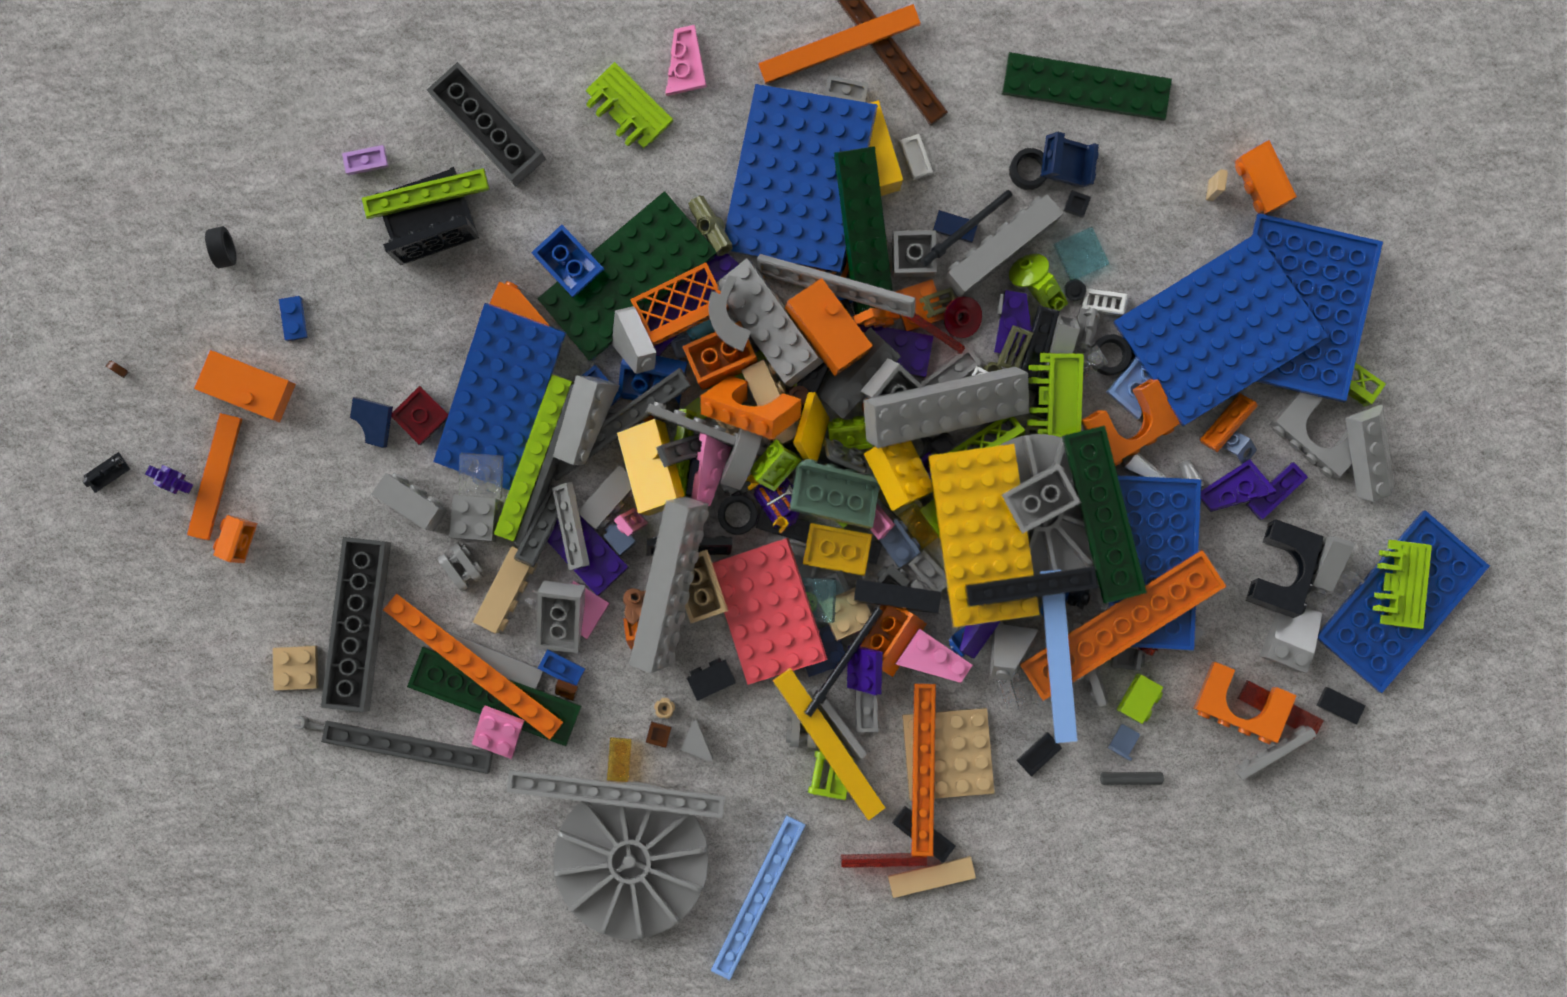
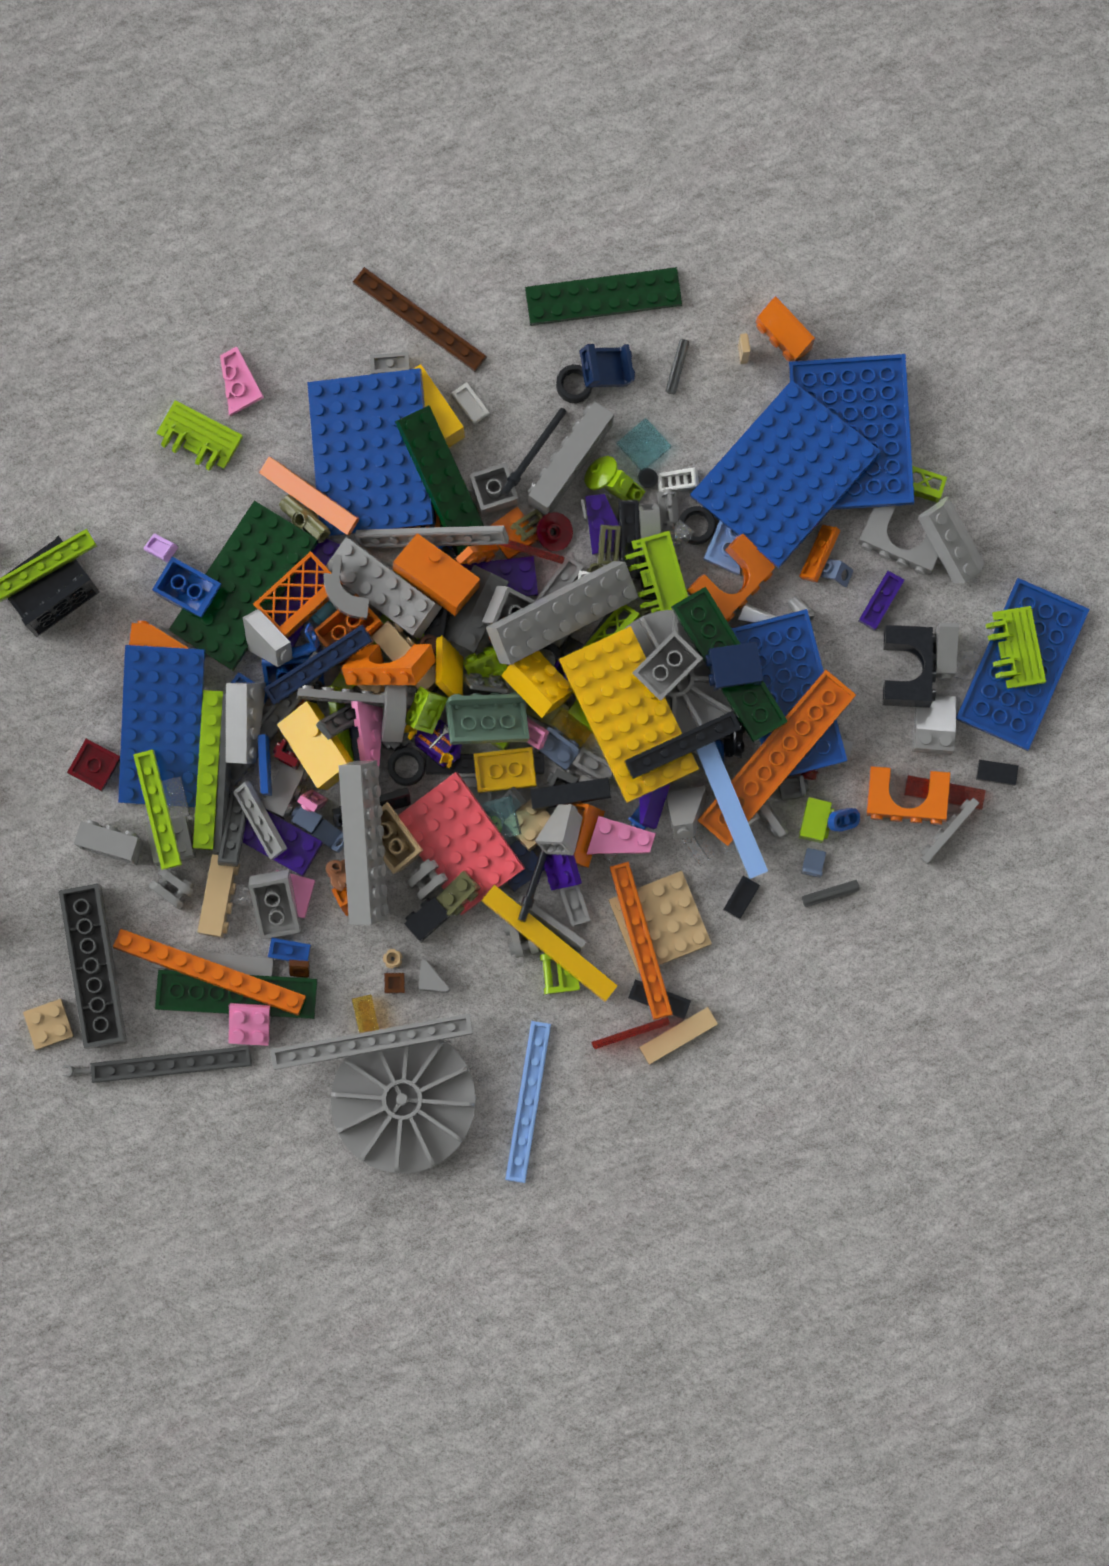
camera: 10 degrees left, 5 degrees down
(374, 420) = (53, 780): dark blue tile -> none
(468, 484) = (157, 809): none -> lime plate
(486, 124) = (77, 489): dark grey brick -> none
(553, 211) = (160, 548): none -> lavender tile
(592, 471) = (264, 765): none -> blue tile
(618, 471) = (287, 758): none -> dark red bracket
(637, 562) = (329, 835): none -> sand blue bracket
(674, 363) = (308, 648): none -> blue bracket
(678, 384) = (318, 664): none -> dark blue tile
(722, 203) = (309, 495): none -> orange tile
(728, 629) = (417, 878): none -> light grey brick
(751, 663) = (458, 893): none -> olive bracket
(839, 44) = (371, 325): orange tile -> none
(876, 635) = (561, 831): none -> light grey slope
(949, 223) = (517, 452): dark blue tile -> none
(1077, 203) = (626, 401): black plate -> none
(1110, 519) = (734, 665): none -> dark blue panel
(1140, 183) = (677, 366): none -> dark grey axle
(1169, 708) = (844, 819): none -> blue plate
(1237, 487) = (844, 607): dark purple wing -> none

